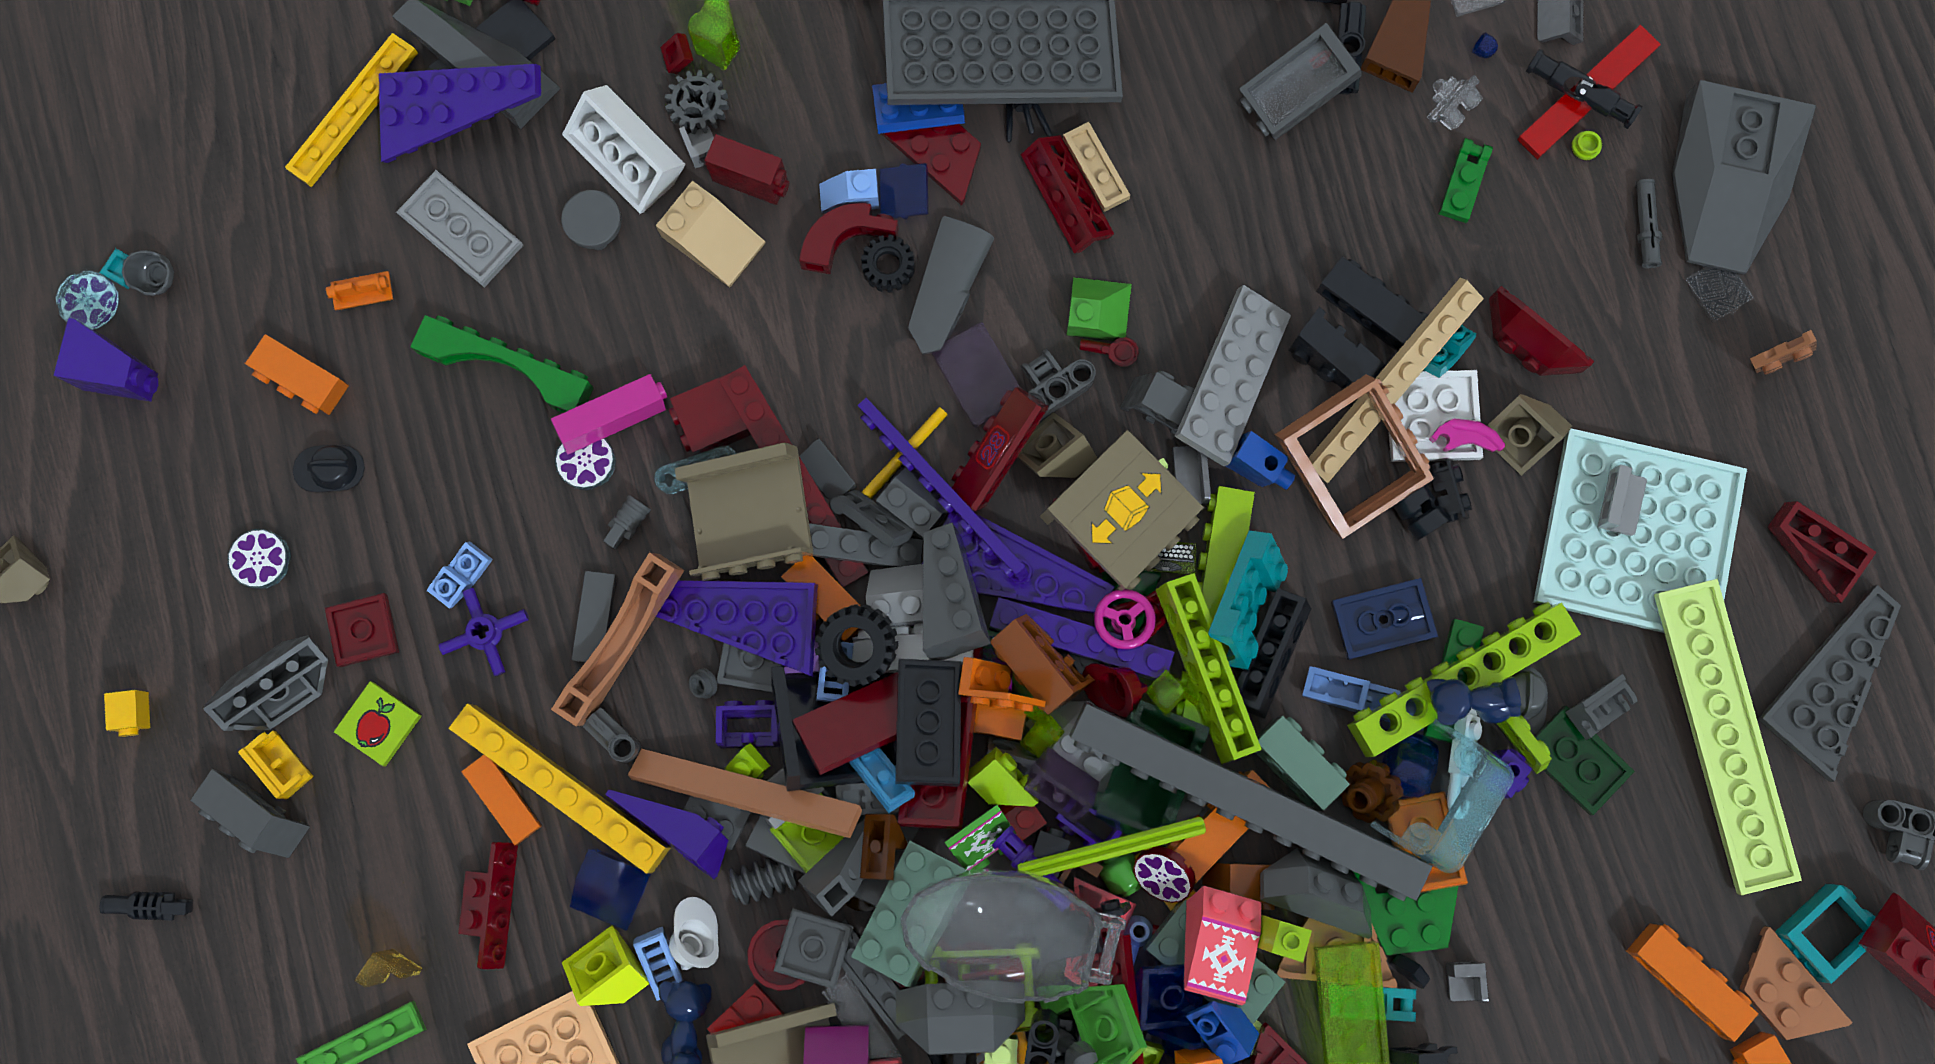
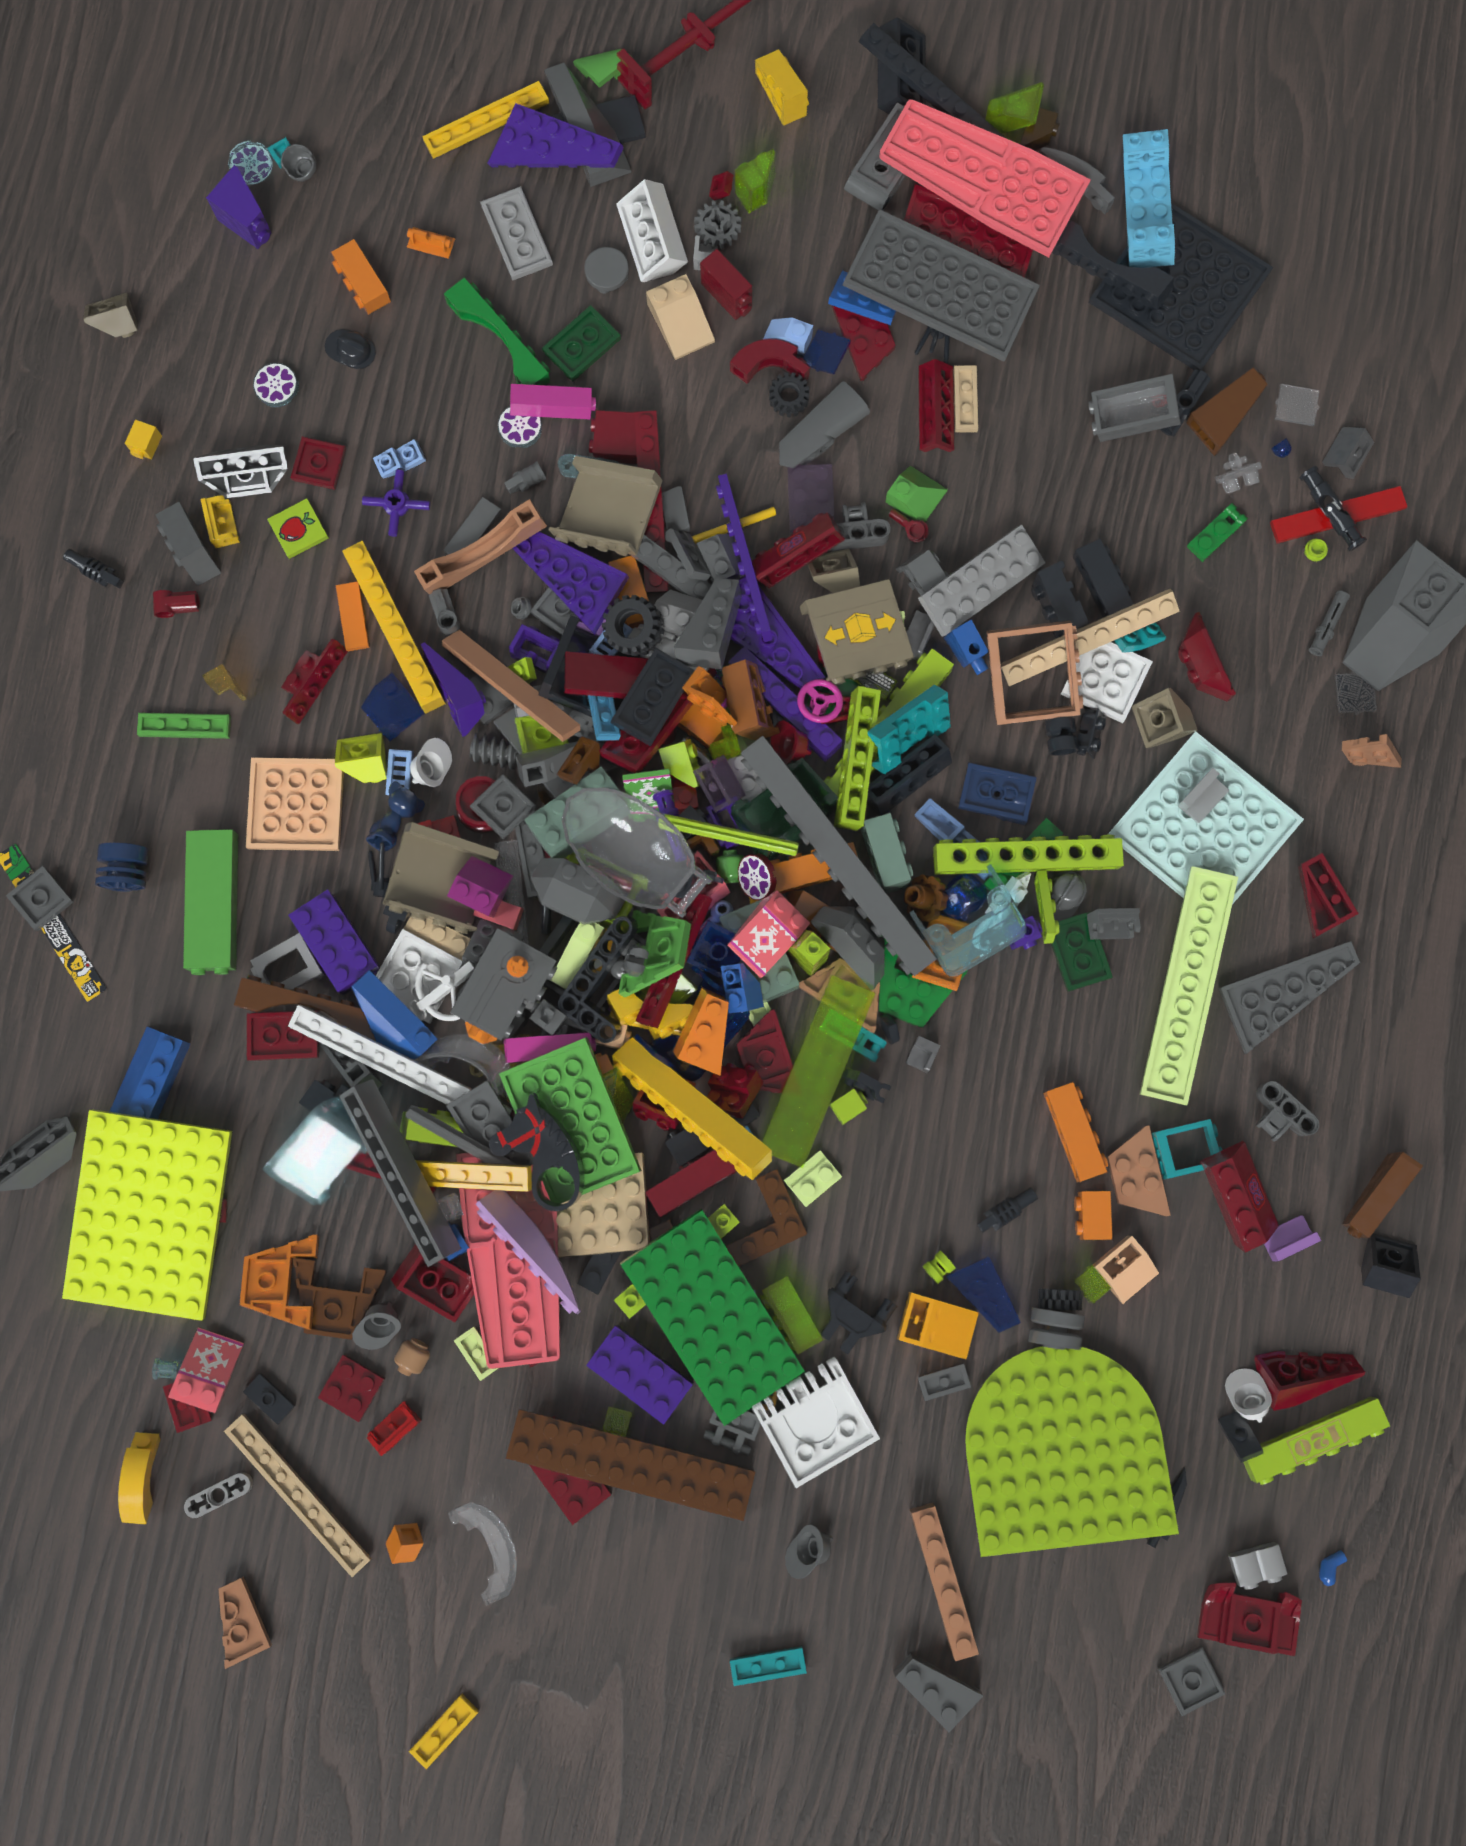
camera: 30 degrees right, 0 degrees up
(265, 899) = (167, 603): none -> dark red piece
(608, 323) = (581, 343): none -> dark green plate
(1169, 691) = (824, 762): clear neon green panel -> none
(1464, 432) = (1121, 697): dark pink piece -> none
(1492, 703) = (1036, 876): dark blue animal -> none

